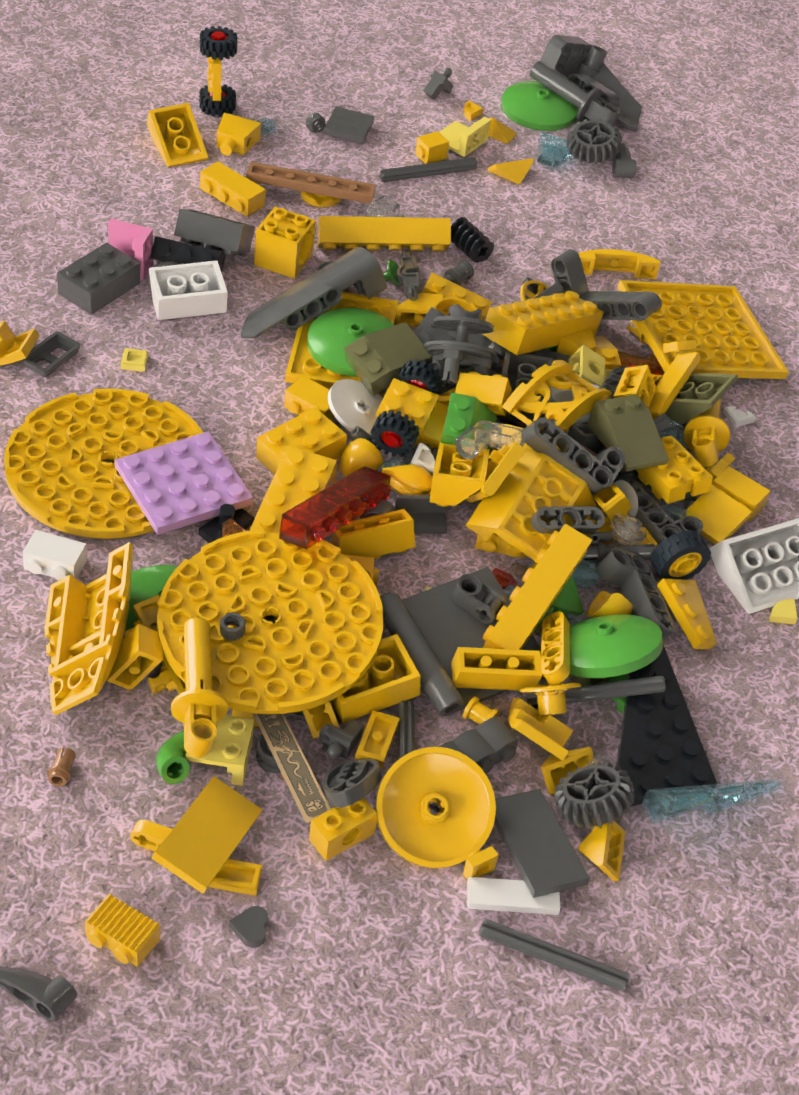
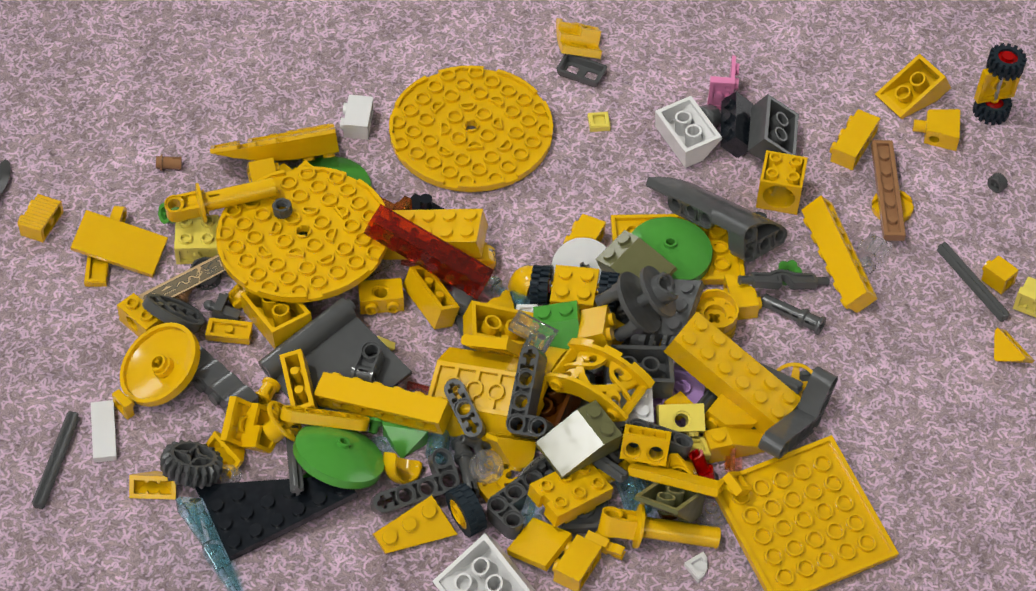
camera: 85 degrees right, 5 degrees up
(98, 278) = (681, 75): dark grey brick -> none
(182, 482) = (454, 170): lavender plate -> none
(251, 926) = (57, 285): dark grey tile -> none
(268, 126) = (975, 149): clear light blue tile -> none
(307, 432) = (524, 237): yellow brick -> none
(349, 125) = (1009, 208): dark grey tile -> none
(406, 728) = (239, 350): dark grey axle -> none
(440, 285) = (771, 321): yellow plate -> none
(471, 240) = (864, 321): black piece -> none
(538, 844) = (147, 437): dark grey tile -> none
(621, 261) = (878, 422): yellow slope -> none

